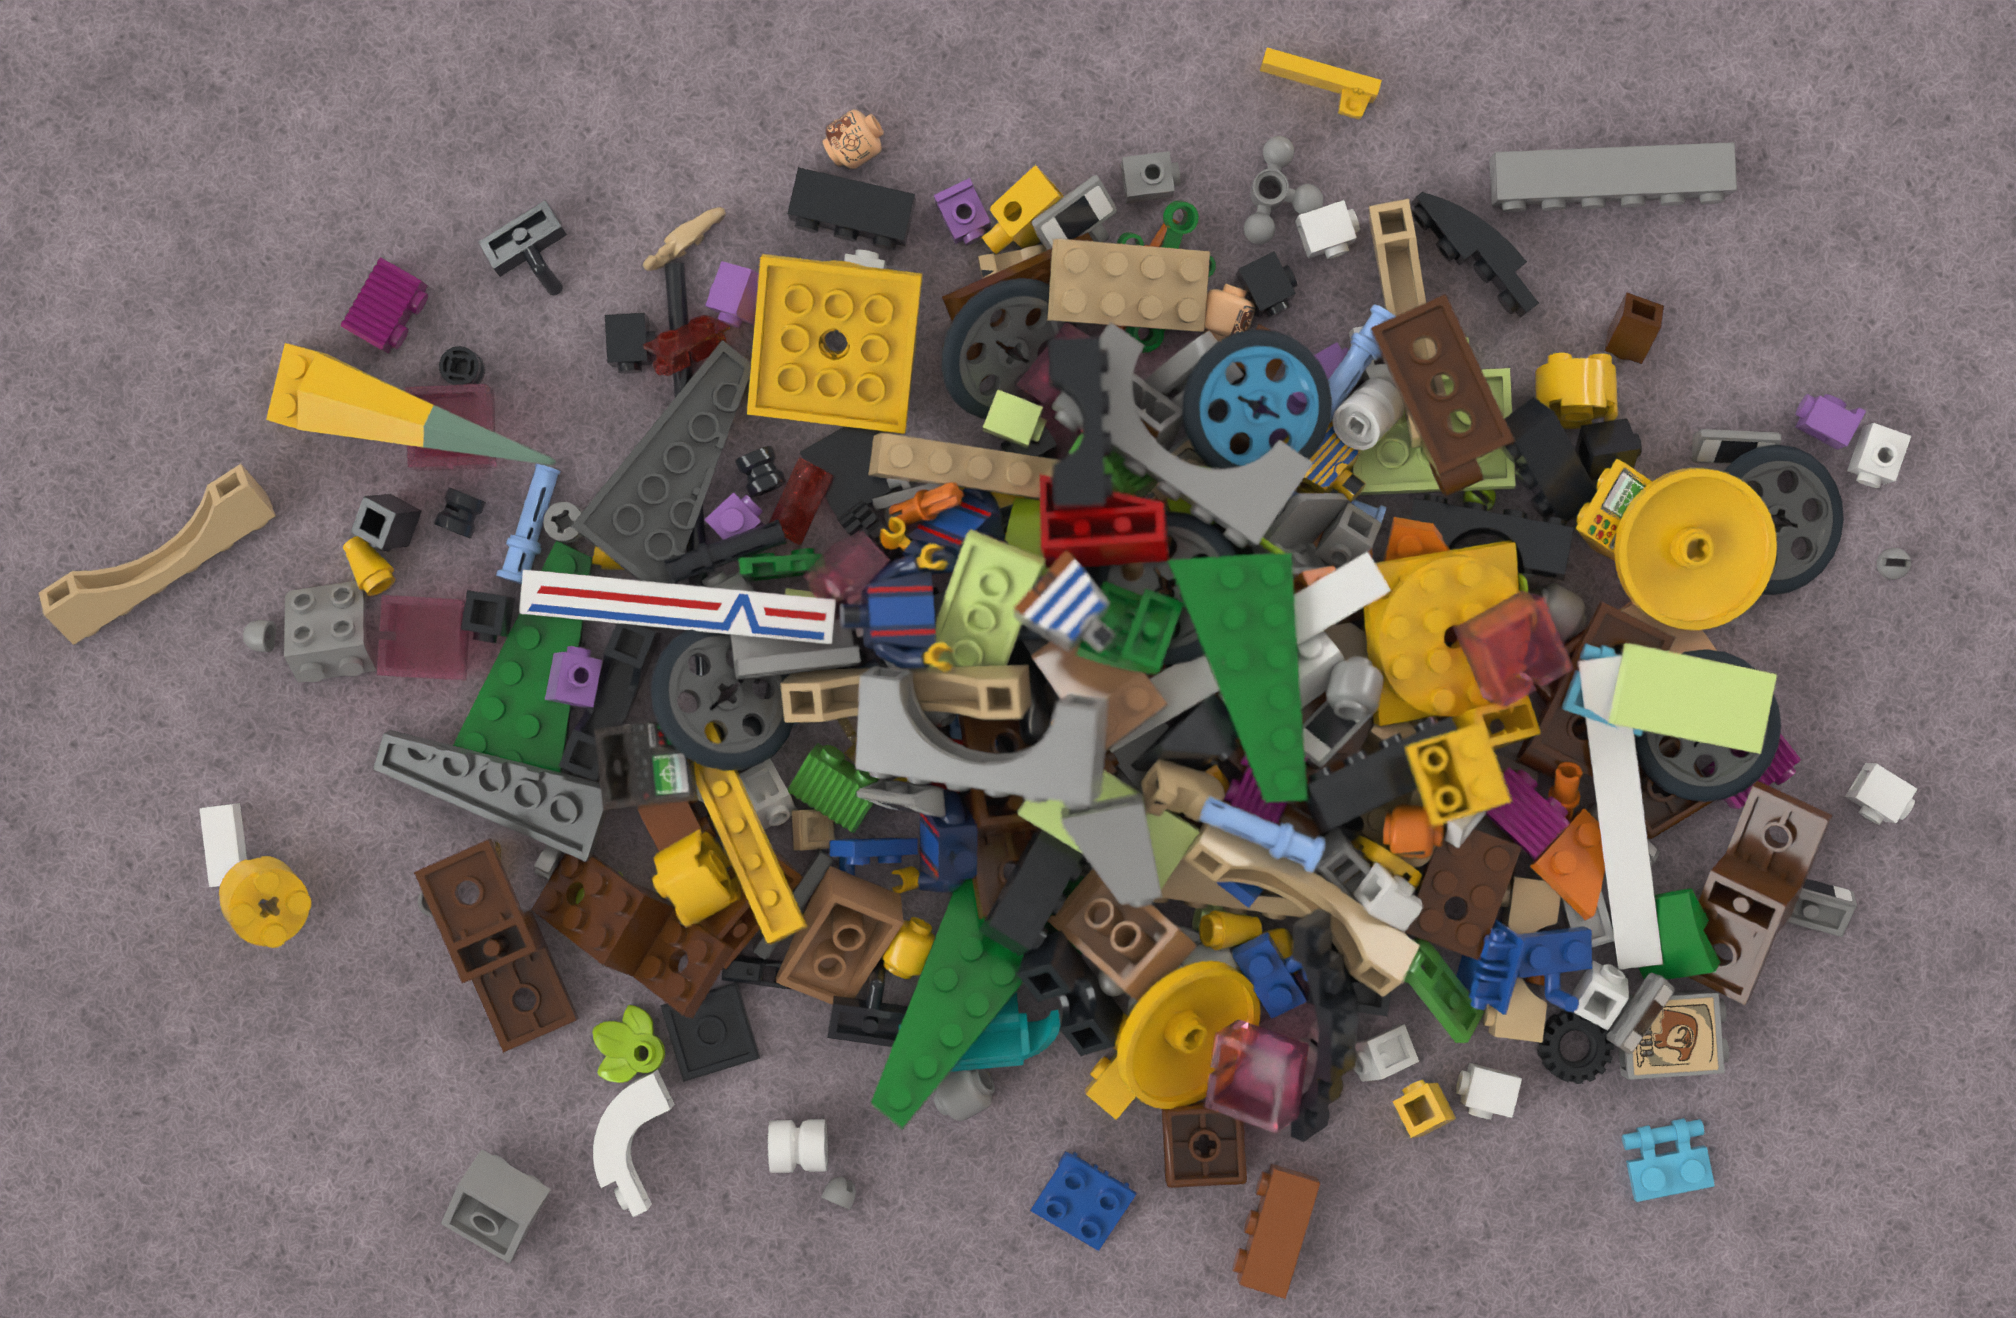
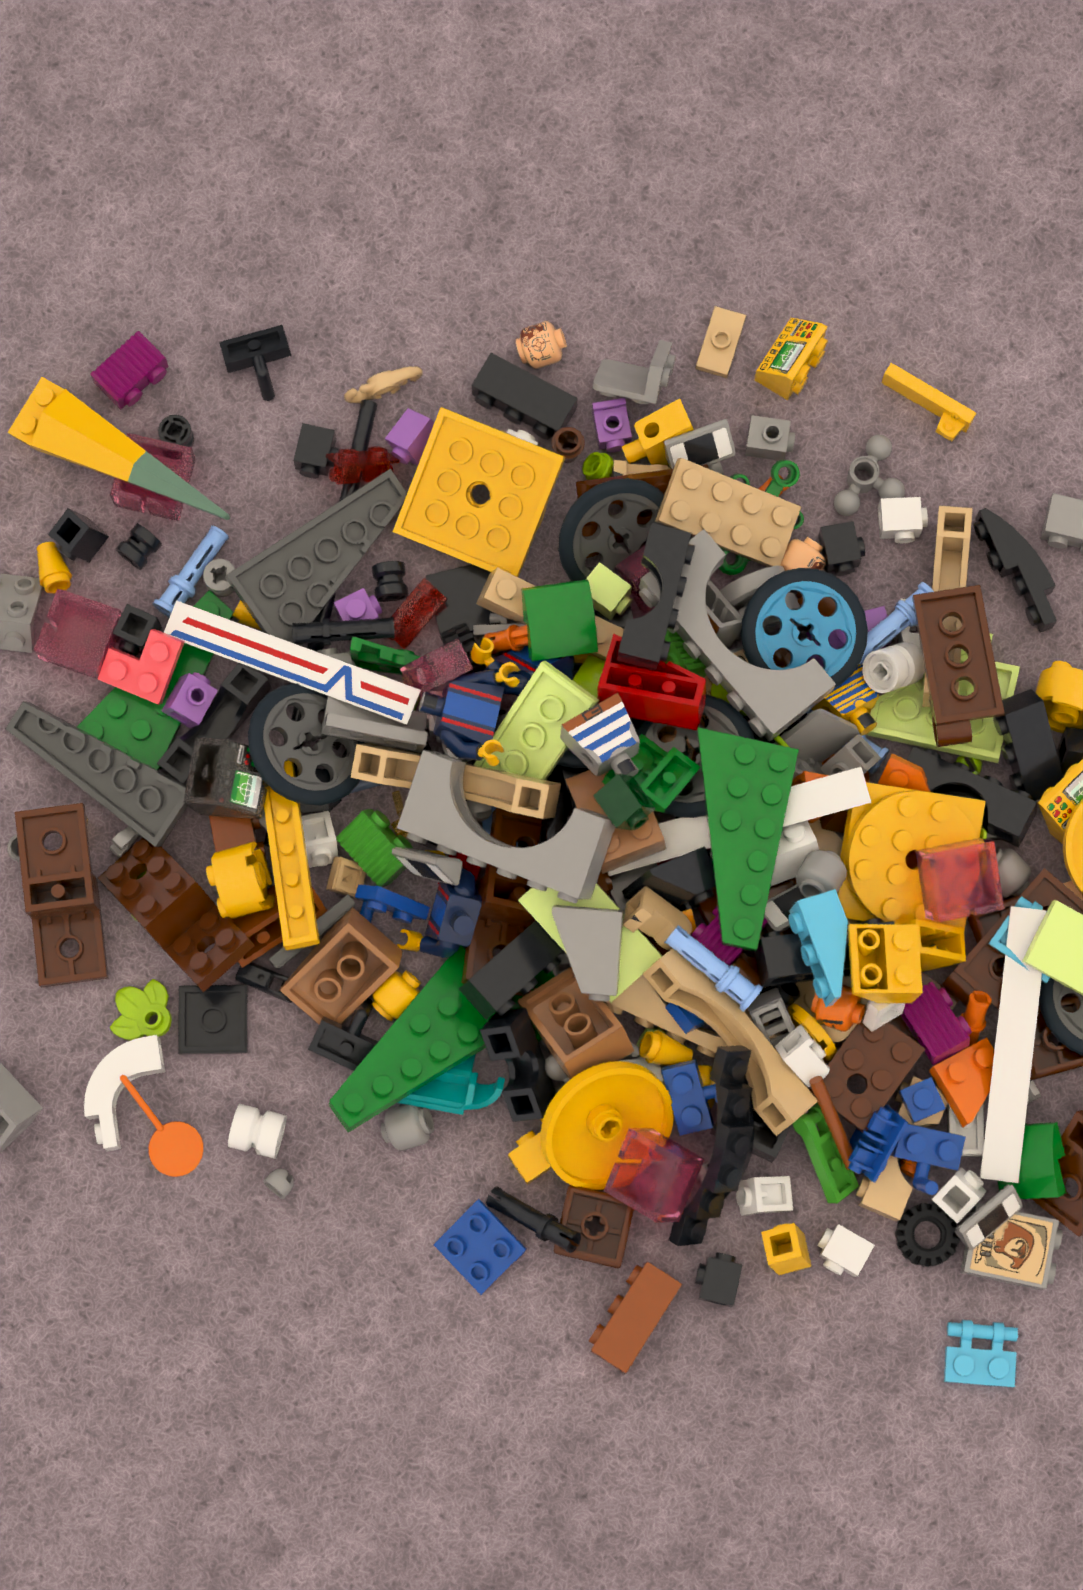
camera: 15 degrees right, 10 degrees down
(515, 665) = (145, 675): none -> coral plate
(710, 1186) = (174, 1146): none -> orange piece
(919, 242) = (570, 438): none -> reddish brown cone
(961, 267) = (597, 466): none -> lime plate
(972, 475) = (559, 620): none -> green slope
(975, 152) = (634, 381): none -> light grey bracket
(1060, 75) = (720, 342): none -> tan plate
(1111, 679) = (624, 802): none -> dark green brick
(1146, 74) = (790, 357): none -> yellow slope
(1149, 1163) = (543, 1225): none -> black pin
(1358, 1163) = (719, 1279): none -> black brick
(1380, 765) = (823, 936): none -> medium azure slope
(1439, 957) = (832, 1119): none -> dark orange bar
(1532, 903) = (922, 1100): none -> blue plate

